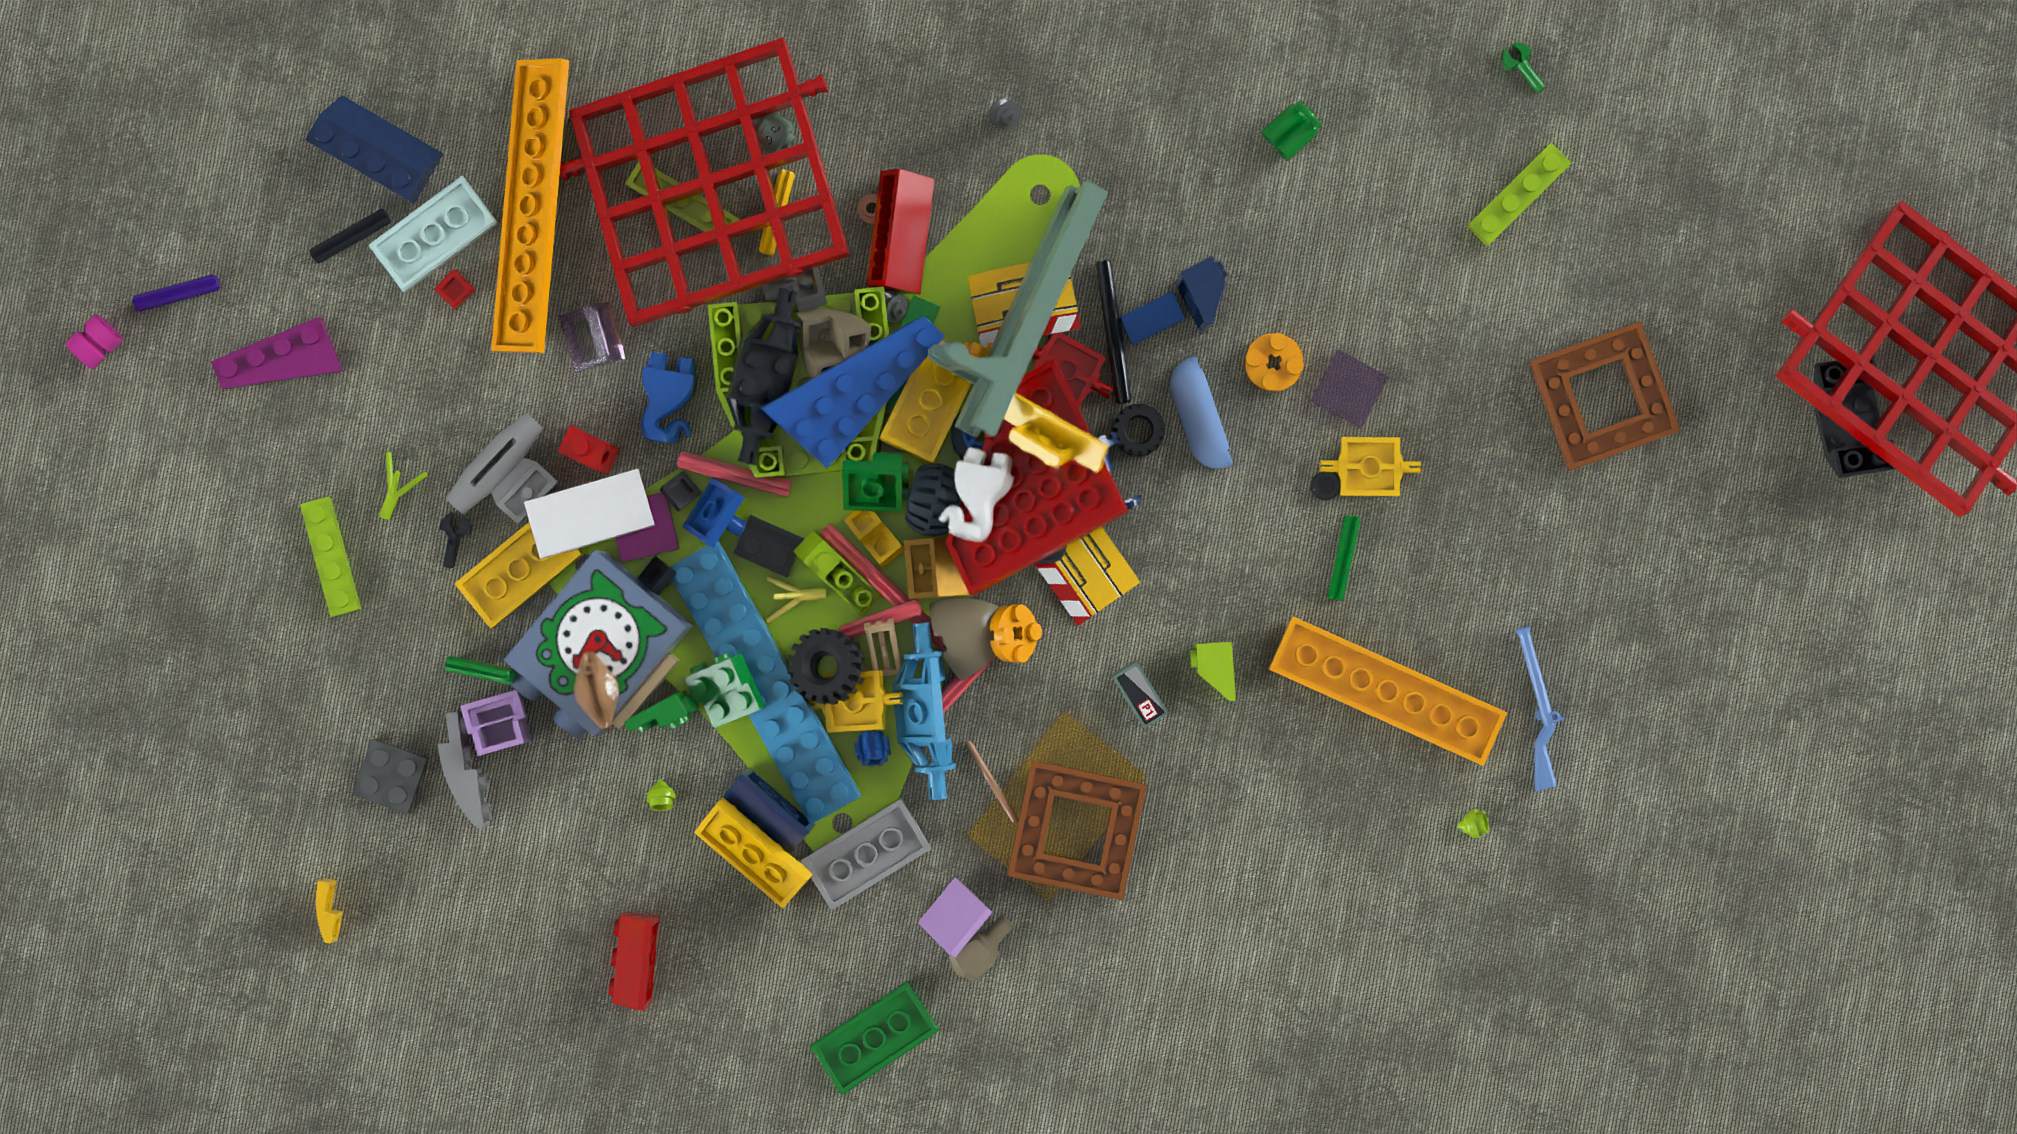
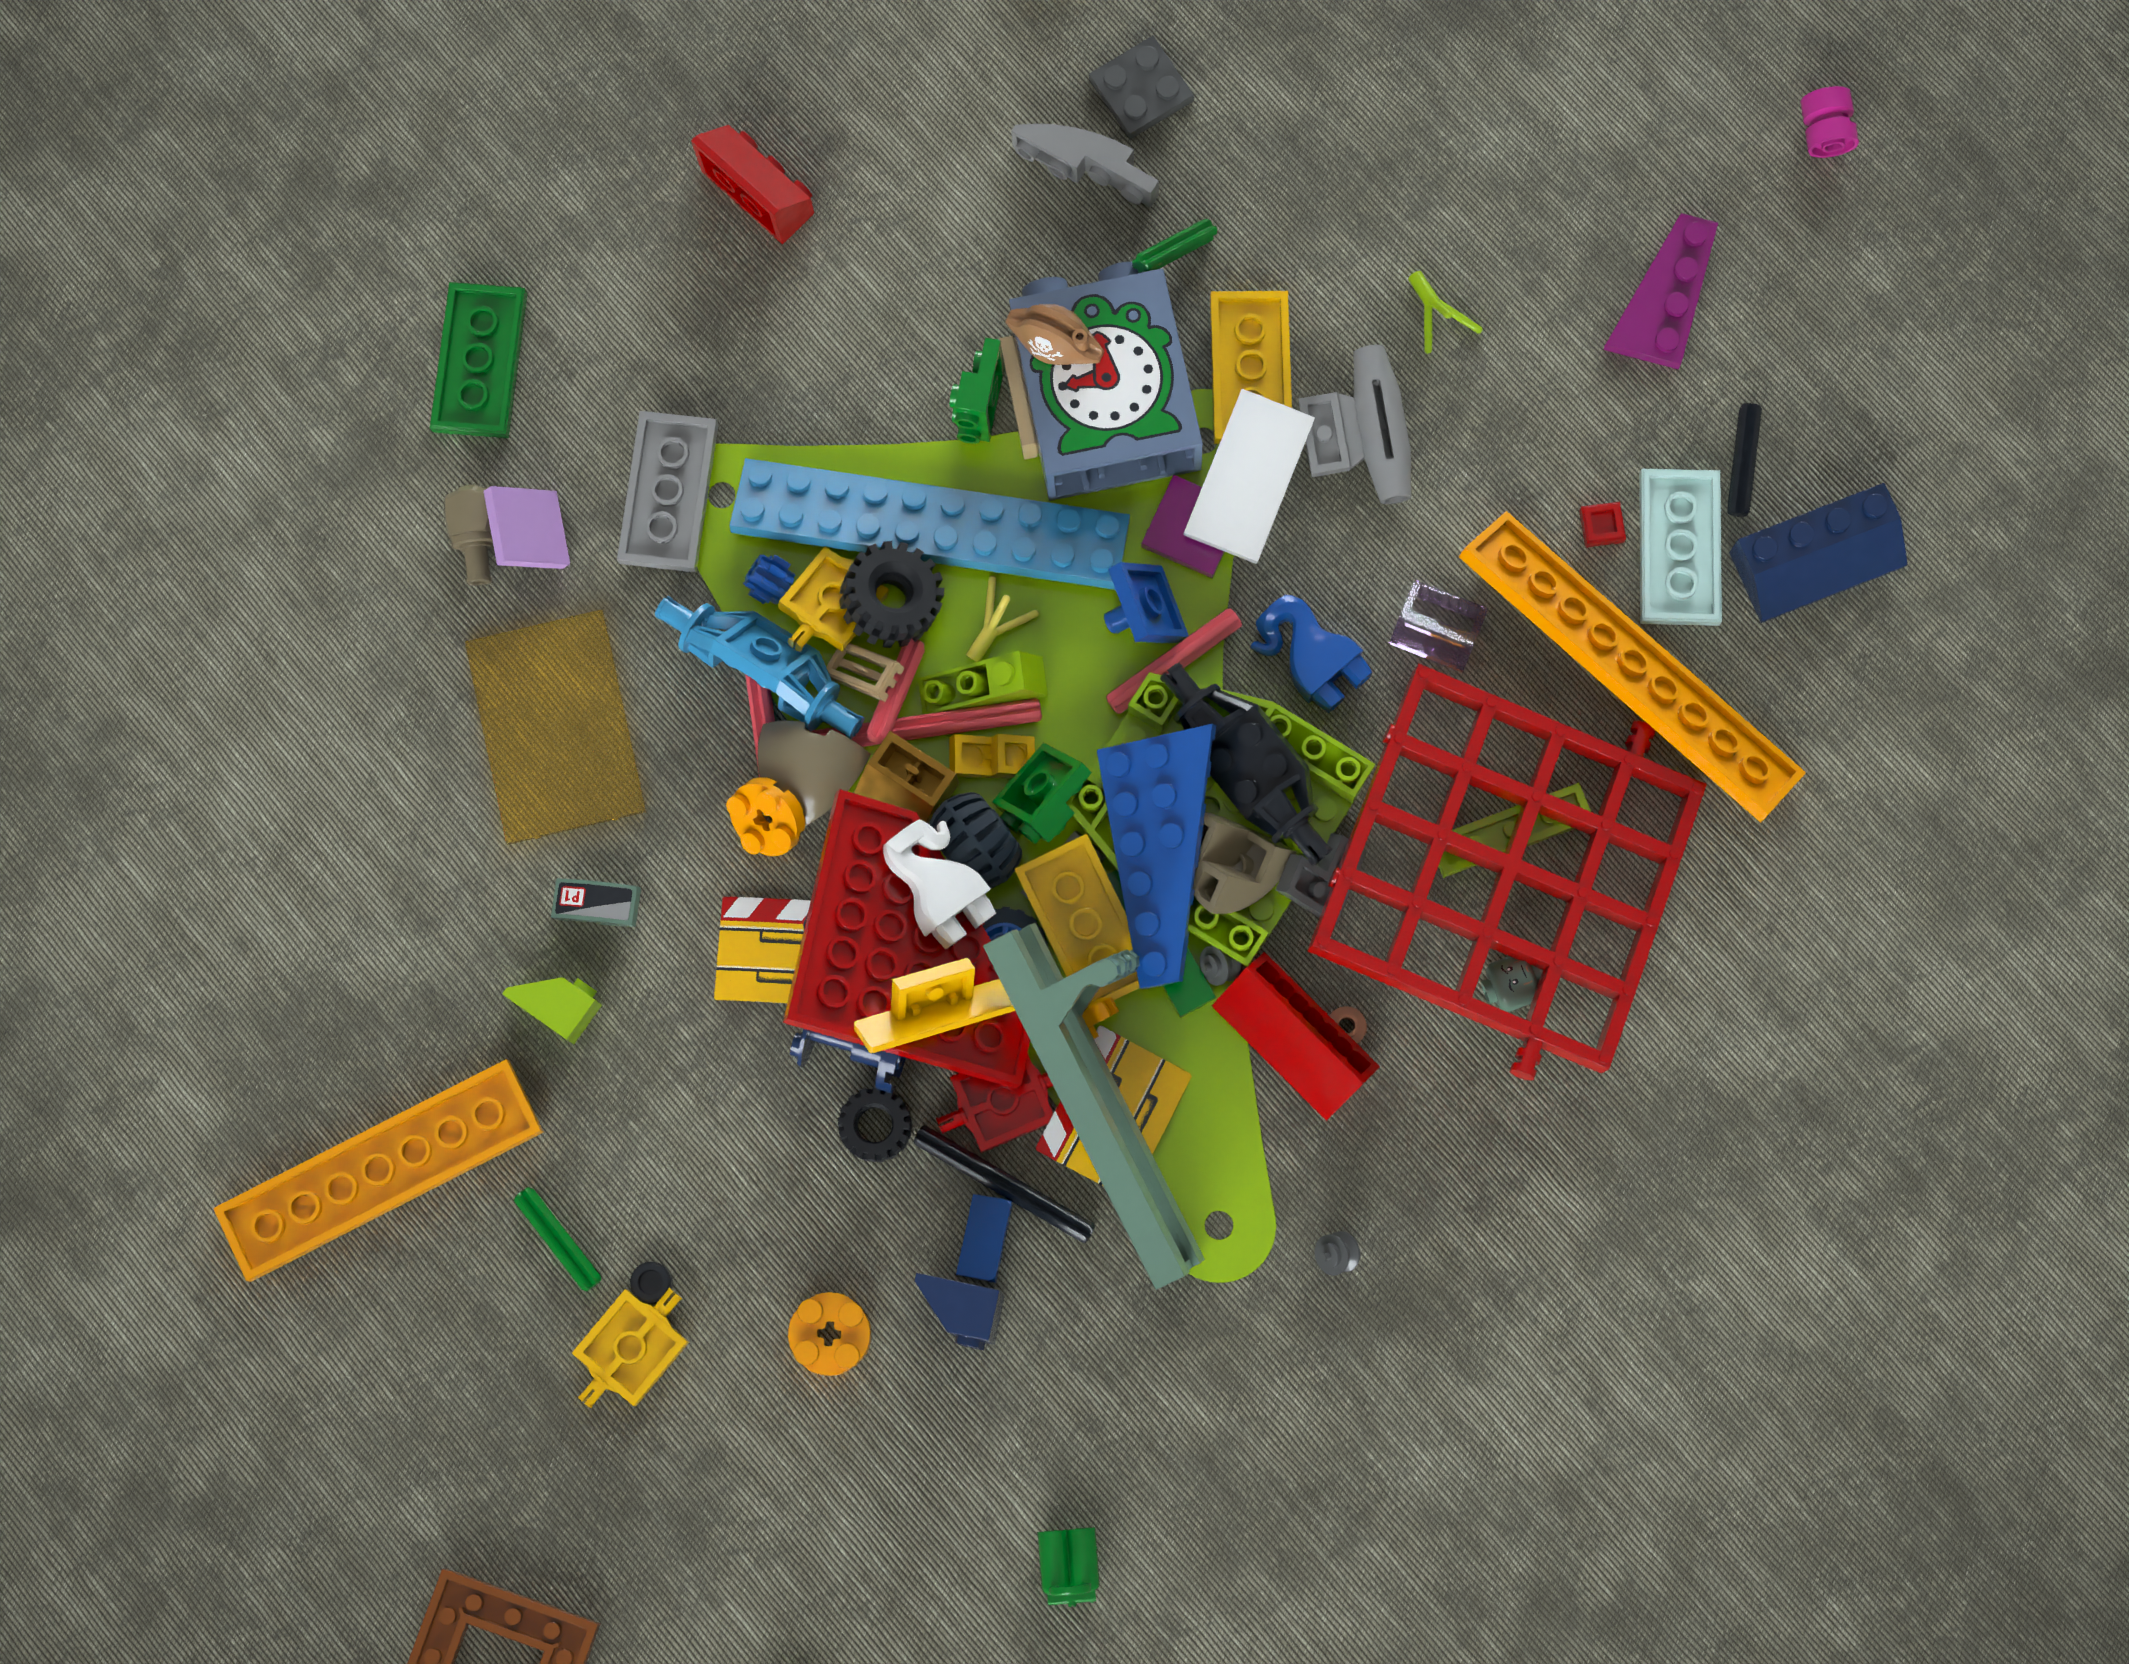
camera: 140 degrees right, 10 degrees down
(176, 293) = (1819, 242): dark purple axle -> none
(330, 556) = (1416, 193): lime plate -> none
(453, 537) = (1337, 329): black bar -> none
(497, 722) = (1105, 222): lavender plate -> none
(588, 450) = (1321, 526): red torso -> none
(656, 575) = (1130, 499): black plate -> none
(661, 796) = (899, 333): lime plate -> none
(680, 491) = (1200, 591): black tile -> none
(724, 689) = (954, 476): green plate -> none
(753, 852) = (762, 377): yellow plate -> none
(768, 546) = (1069, 638): black plate -> none
(768, 810) = (792, 426): dark blue slope -> none
(782, 193) = (1432, 935): yellow axle -> none
(991, 781) = (635, 677): medium nougat axle -> none
(1126, 805) = (509, 796): dark orange plate -> none
(1199, 415) = (840, 1205): light blue brick -> none
(1349, 389) = (733, 1394): clear purple tile -> none
(1474, 823) = (162, 1150): lime plate -> none
(1543, 771) = (154, 1271): medium blue piece -> none

